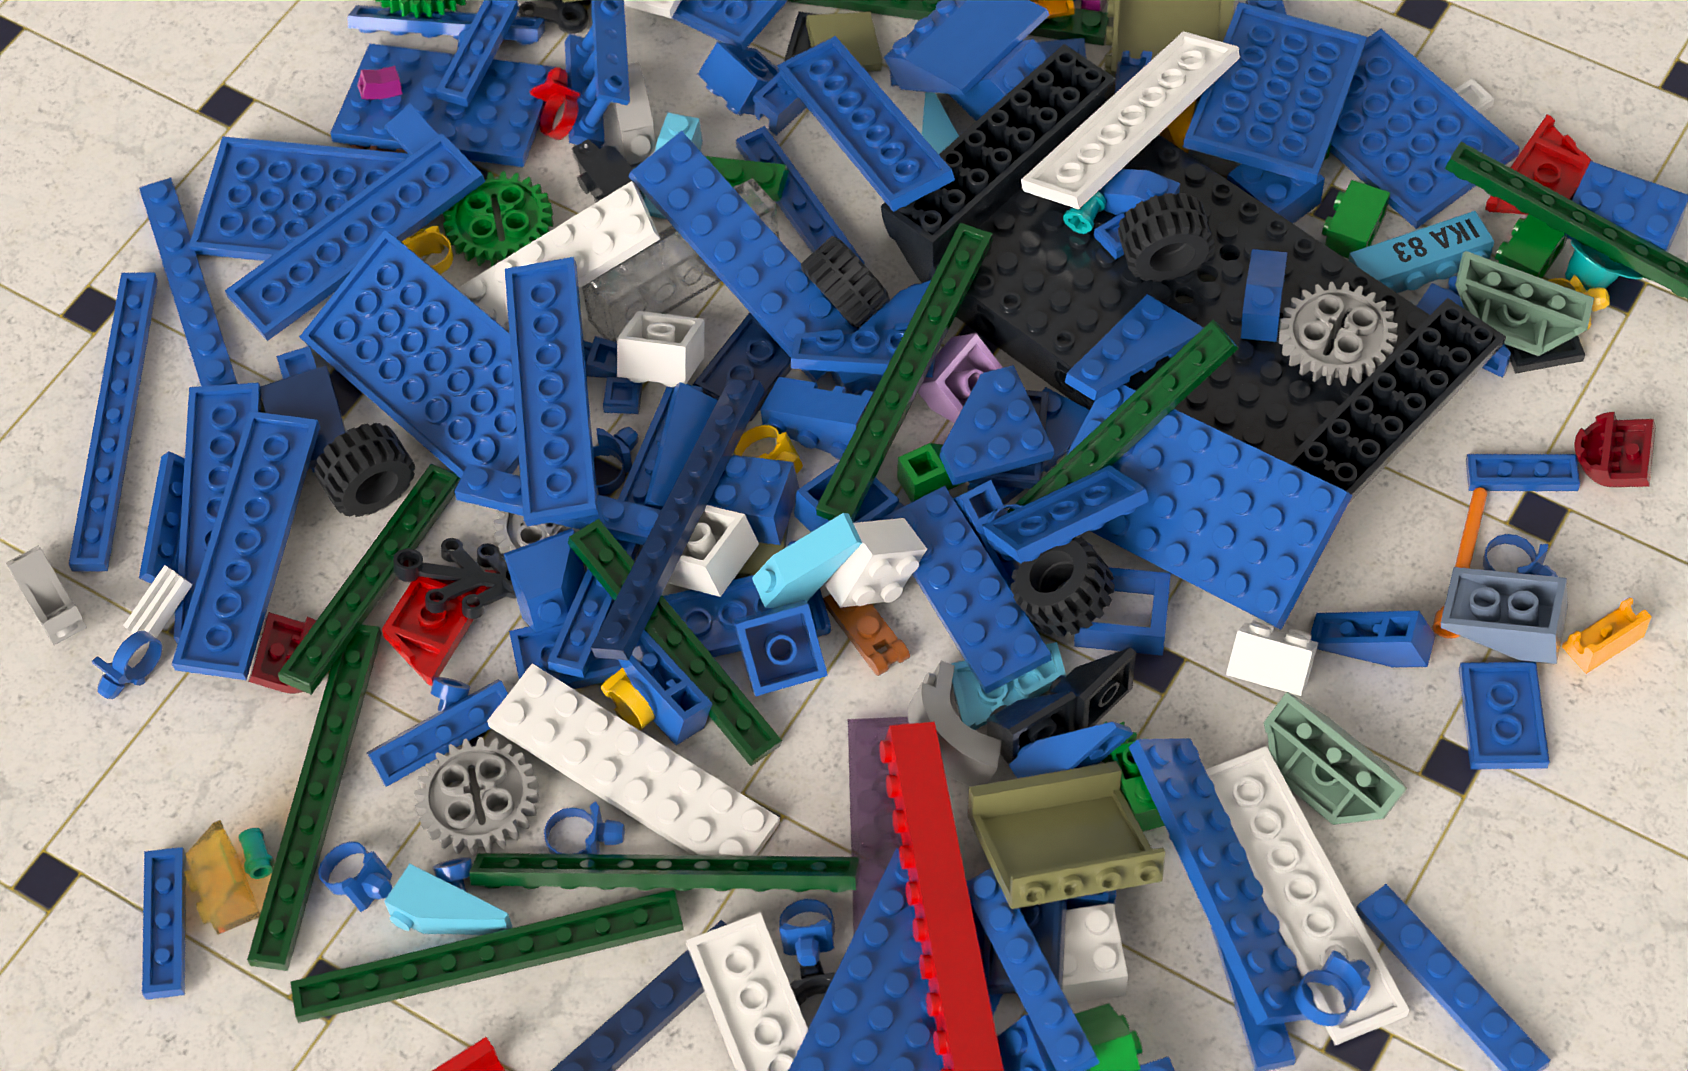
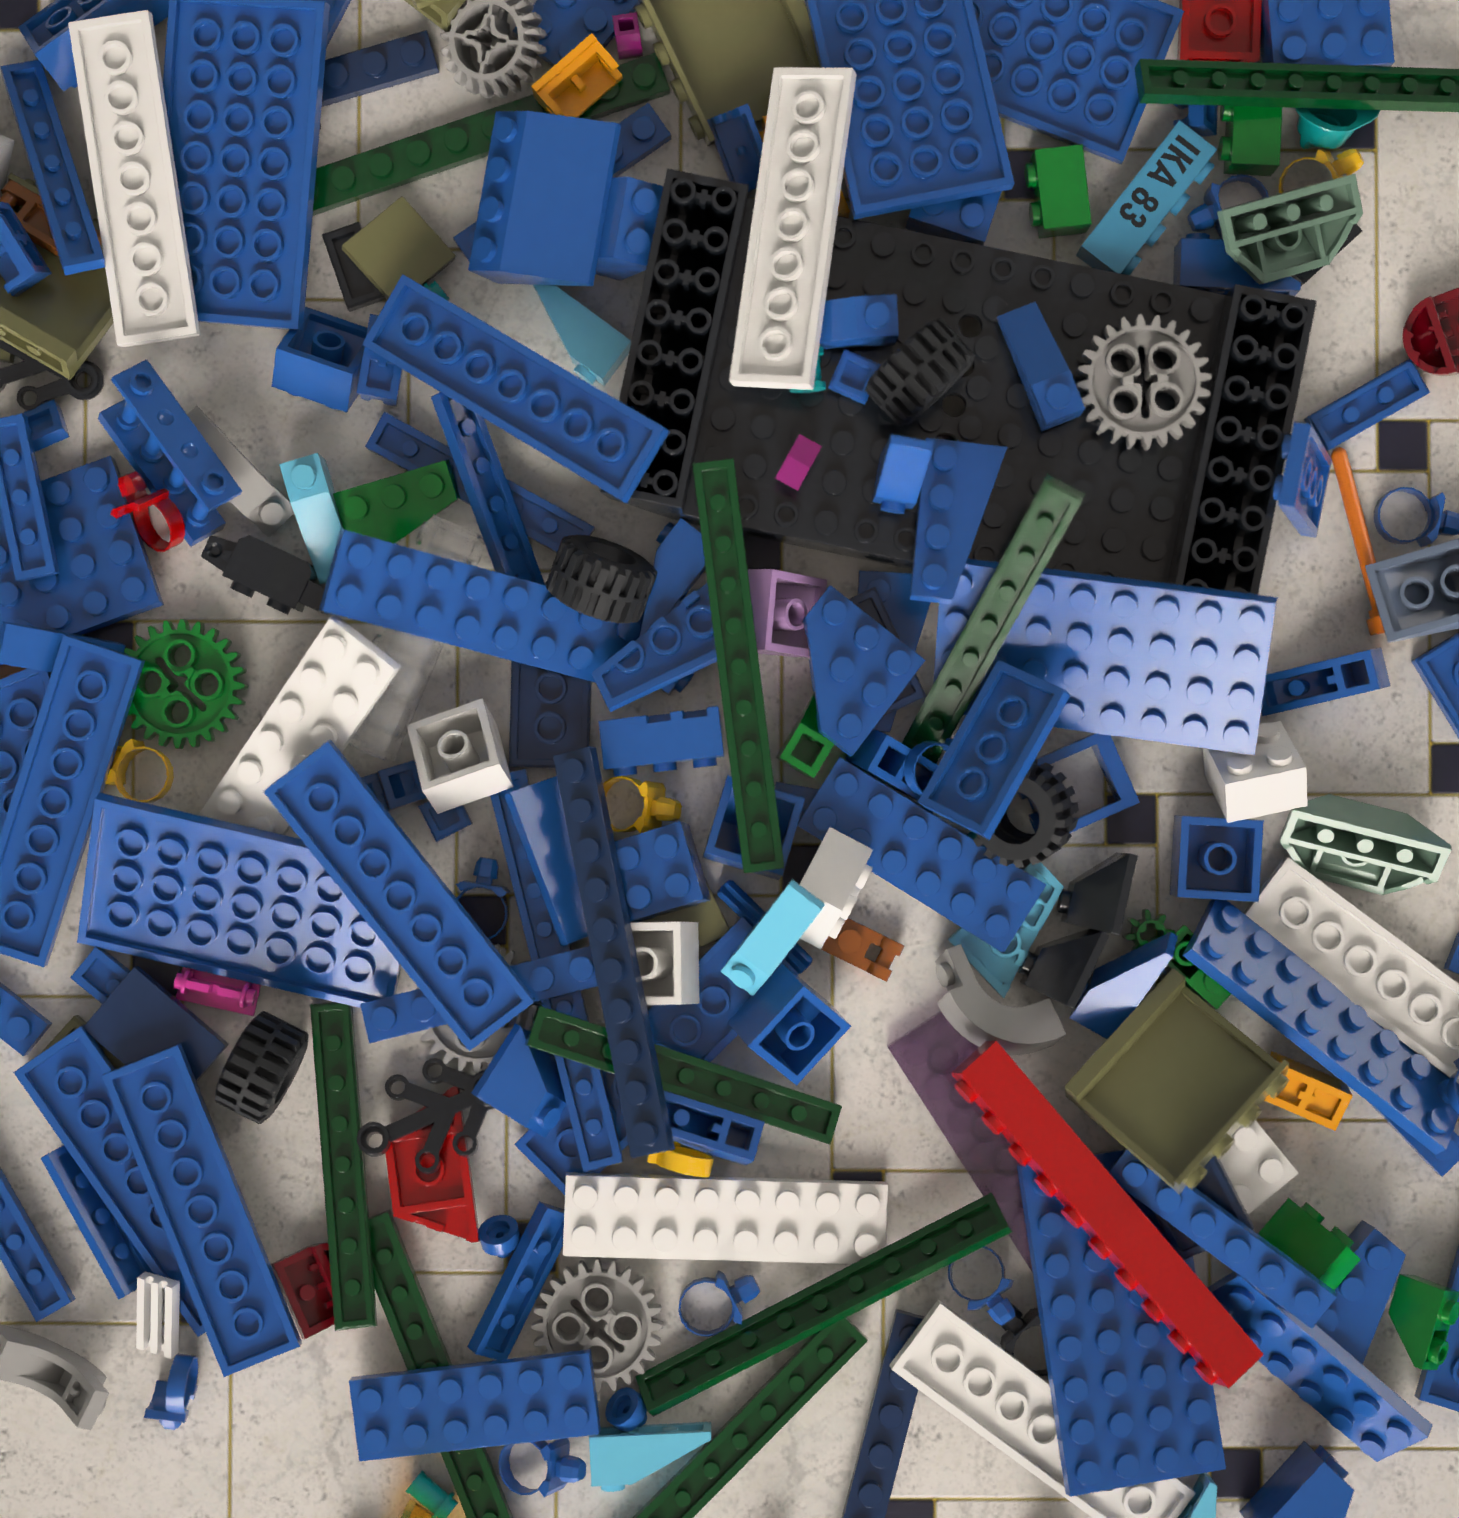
camera: 30 degrees left, 30 degrees up
(341, 793) = (475, 1405): none -> blue plate
(362, 410) = (217, 991): none -> dark pink hinge
(804, 187) = (487, 490): none -> blue plate
(1039, 264) = (798, 462): none -> magenta piece
(1112, 286) = (901, 473): none -> slope
(1174, 928) = (1312, 1094): none -> light orange hinge
(1205, 710) = (1216, 858): none -> blue brick
(1431, 464) = (1305, 479): none -> blue plate
(1499, 220) = (1200, 119): none -> blue tile

